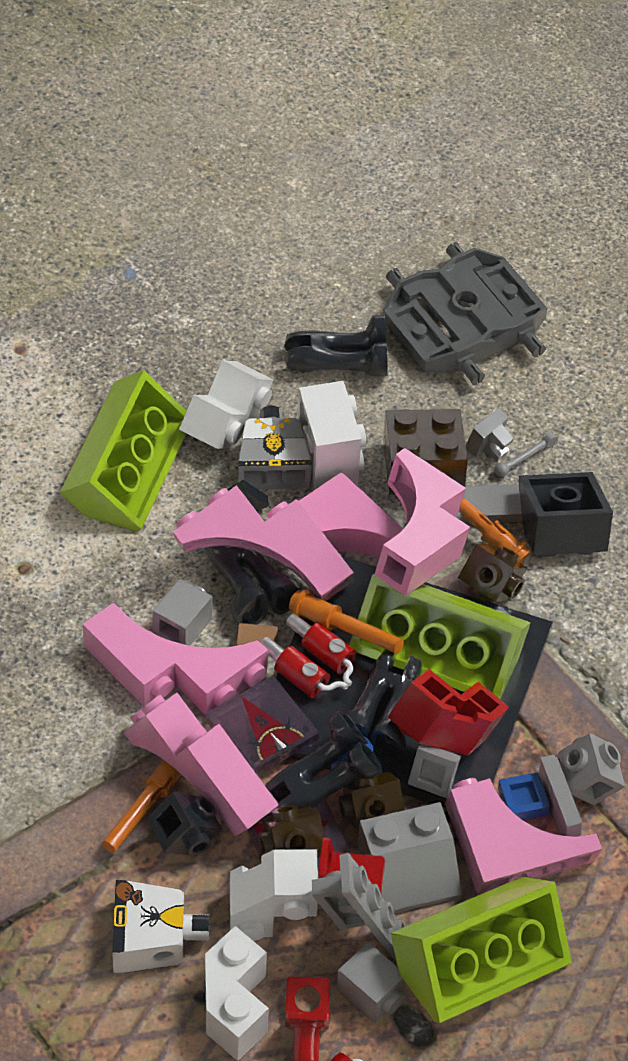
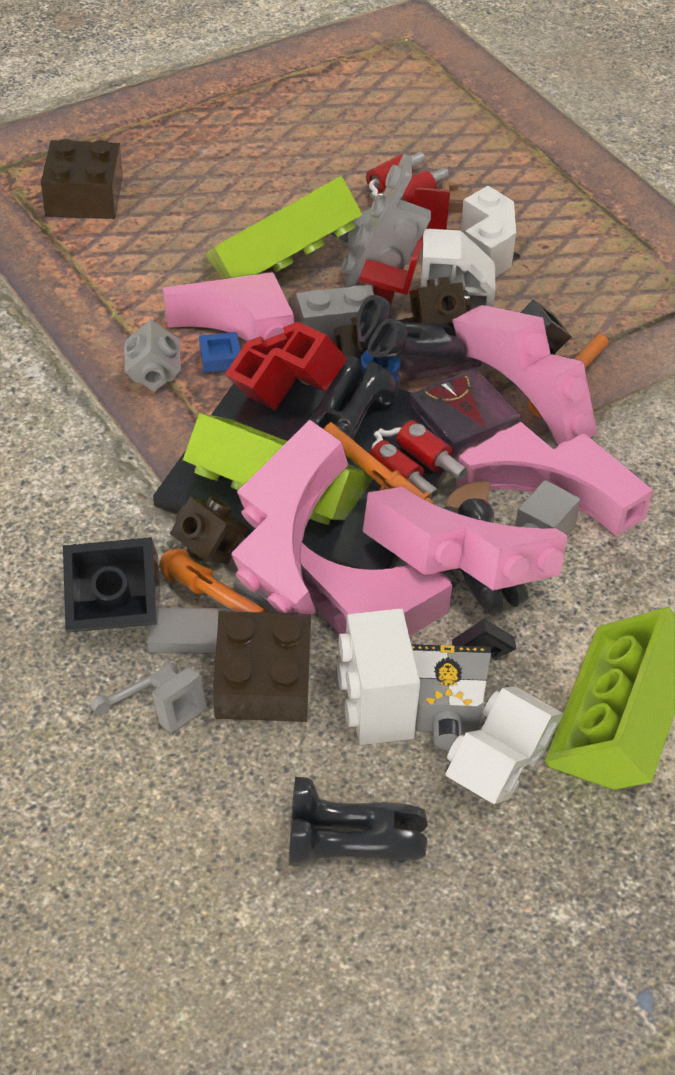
camera: 175 degrees left, 5 degrees down
(152, 926) = (559, 280): white torso -> none
(501, 316) = (179, 912): dark grey piece -> none
(559, 797) = (189, 347): light grey tile -> none

